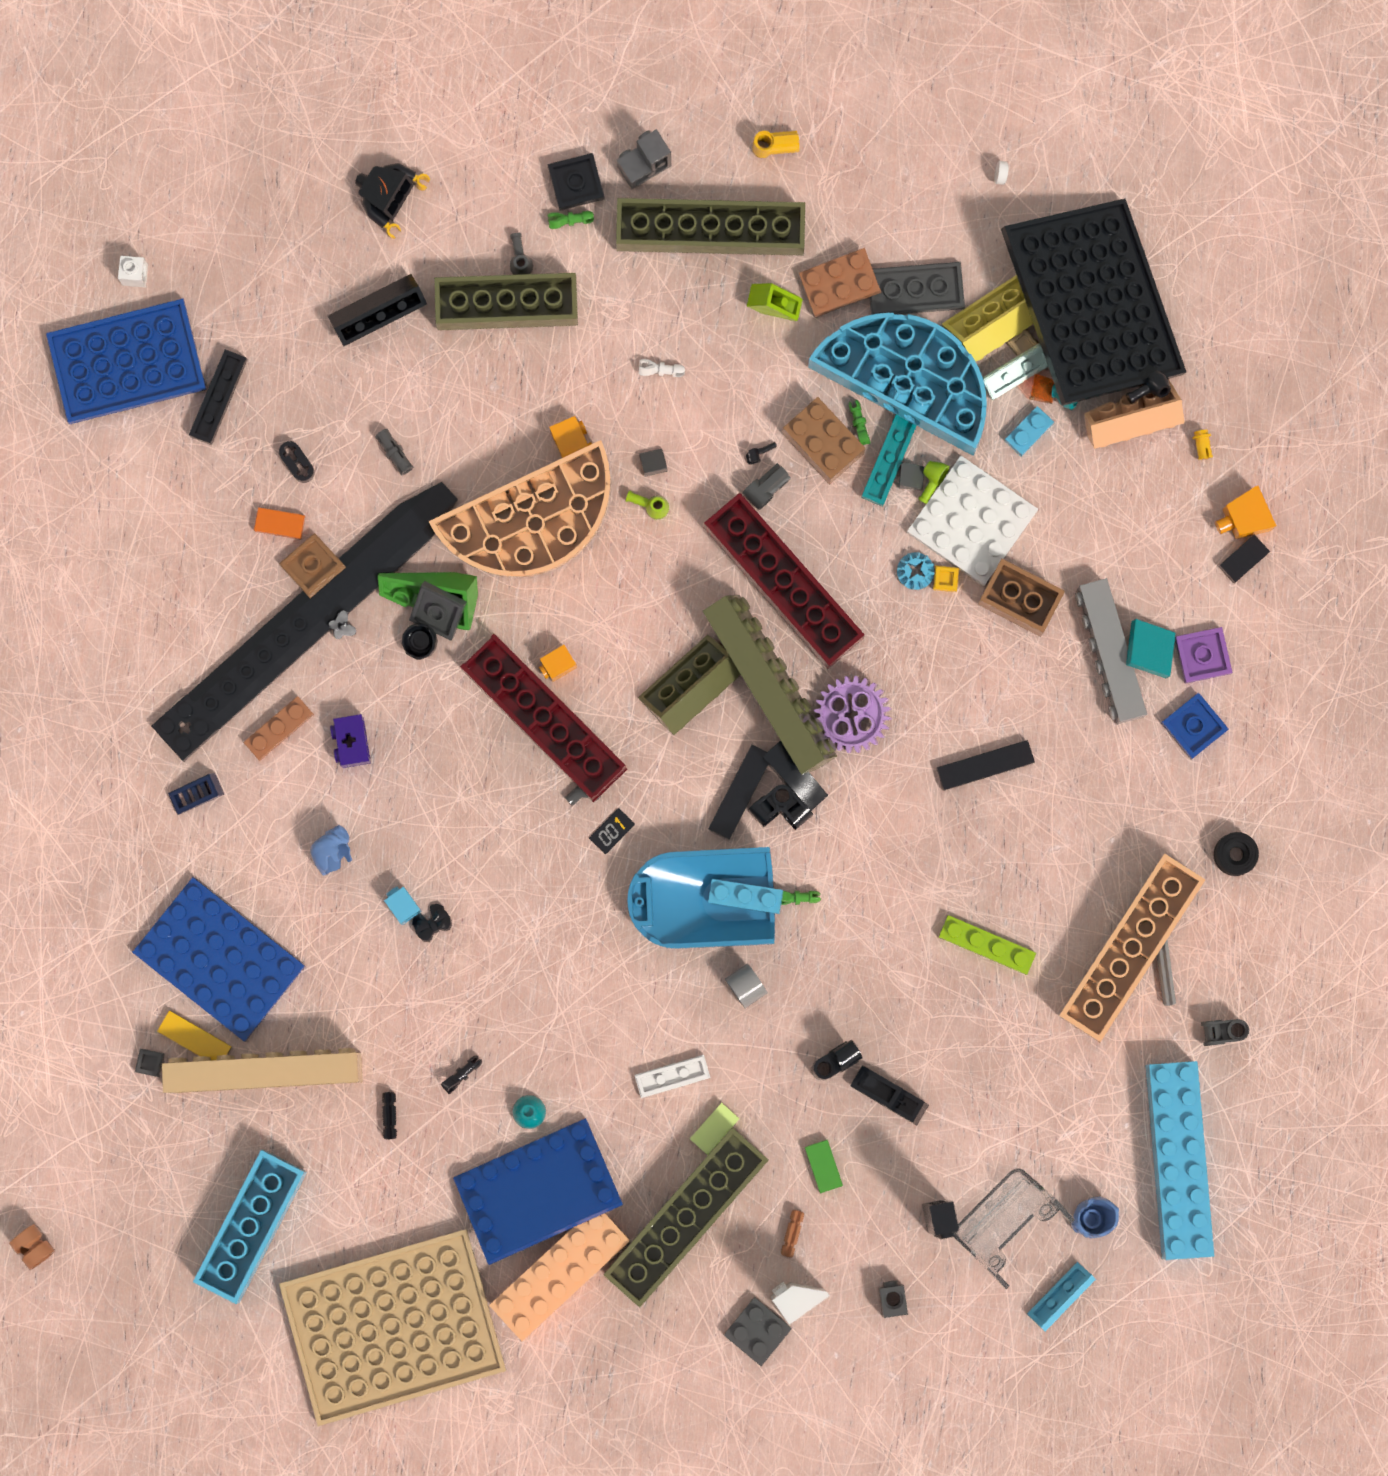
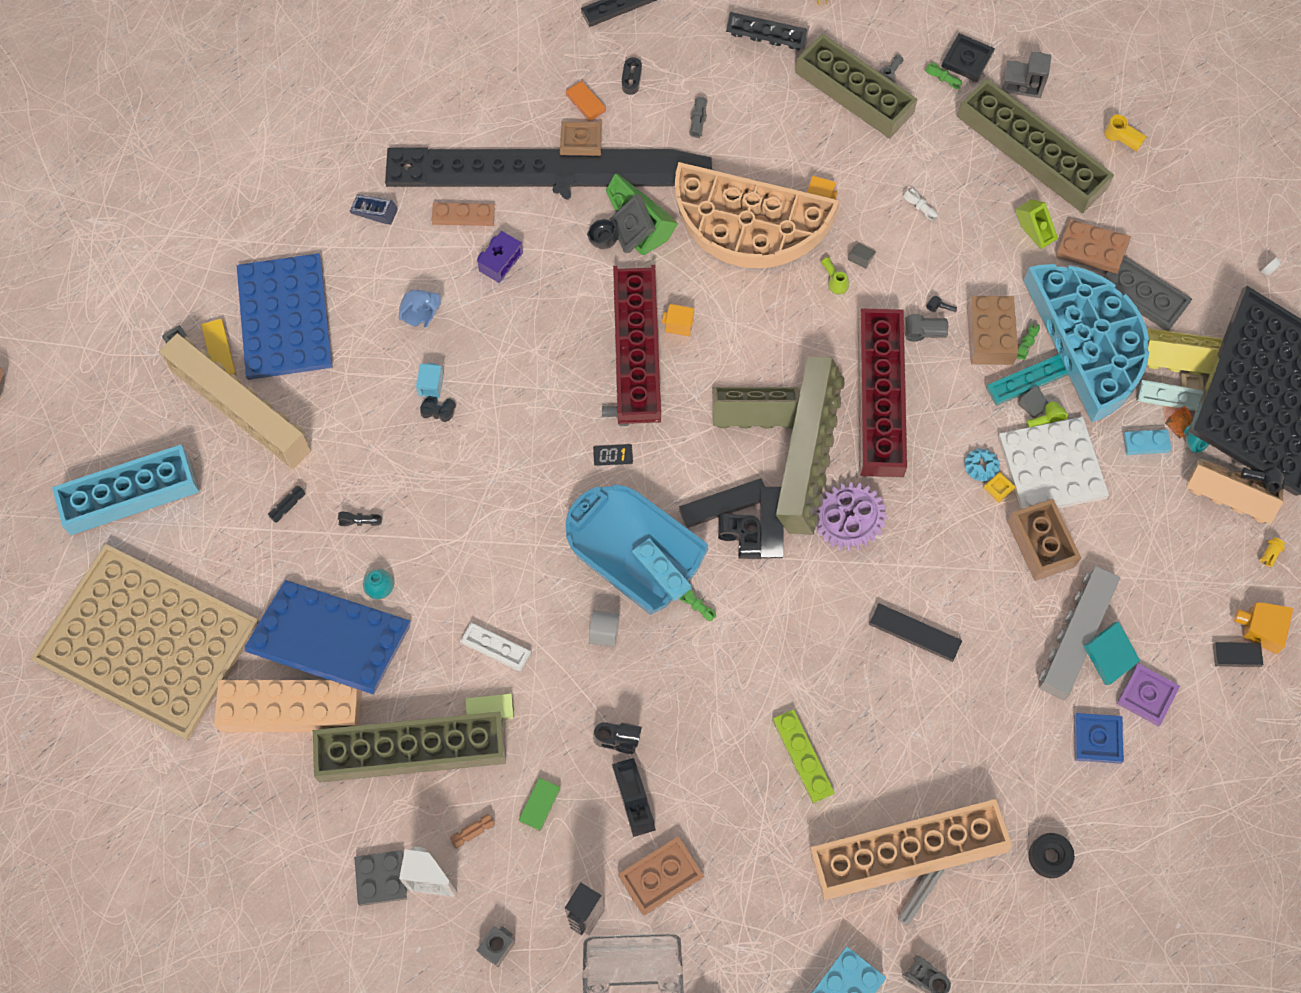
camera: 45 degrees right, 15 degrees down
(965, 1136) = (660, 876): none -> nougat plate

